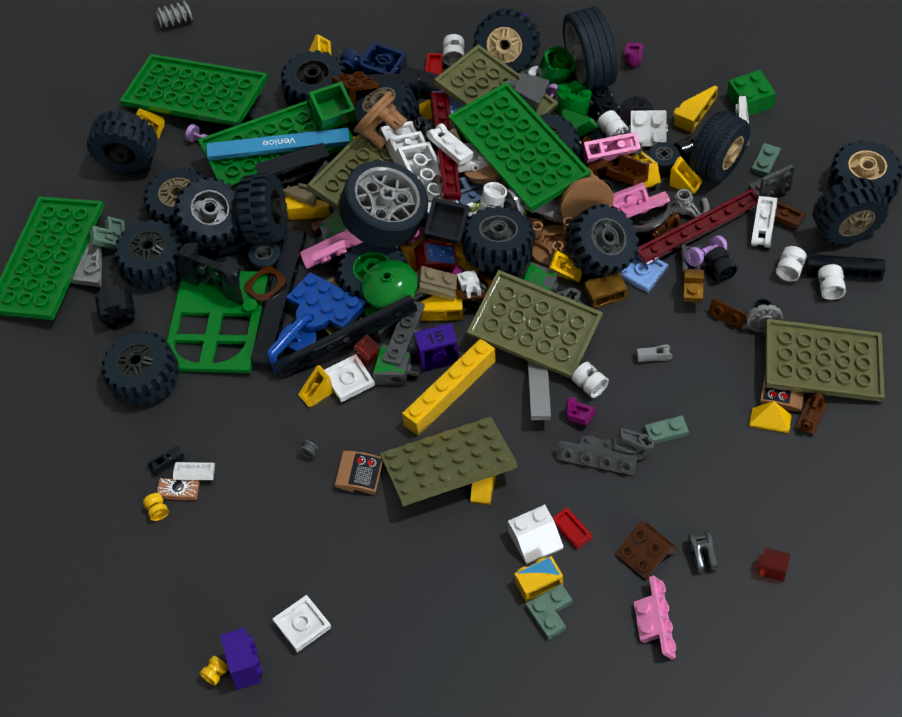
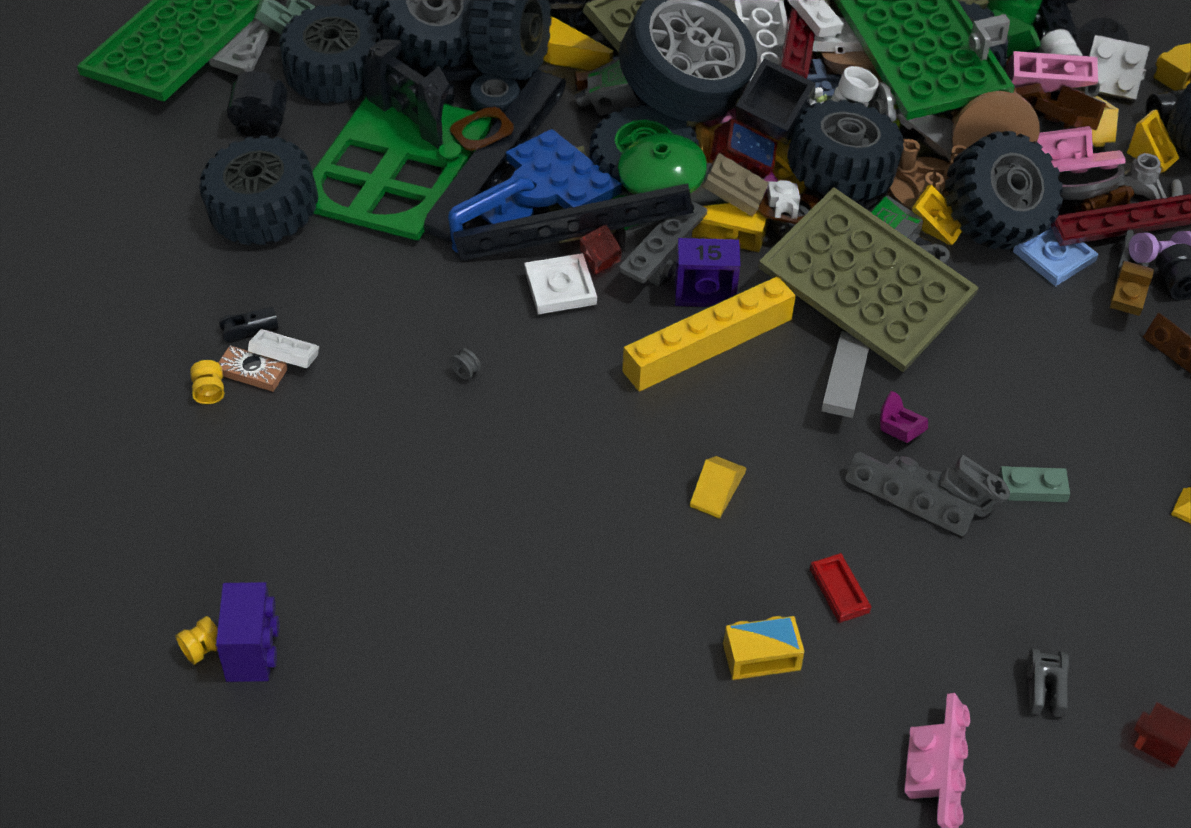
camera: 10 degrees right, 5 degrees down
(301, 194) = (575, 27): dark tan tile -> none
(302, 623) = (363, 609): white plate -> none
(316, 387) = (508, 283): yellow slope -> none
(329, 248) = (592, 105): bright pink bracket -> none
(358, 472) = (530, 415): slope -> none
(393, 374) = (628, 295): dark grey torso -> none
(448, 461) = (673, 433): olive plate -> none
(535, 534) = (777, 578): white slope -> none
(545, 609) = (759, 699): sand green plate -> none
(565, 140) = (988, 33): none -> light grey bracket
(590, 380) = (931, 379): white wheel -> none
(605, 290) = (992, 263): pearl gold brick -> none
(645, 549) = (951, 651): reddish brown bracket -> none
(650, 354) = (1043, 370): light grey bar -> none
(665, 155) = (1132, 108): black wheel -> none

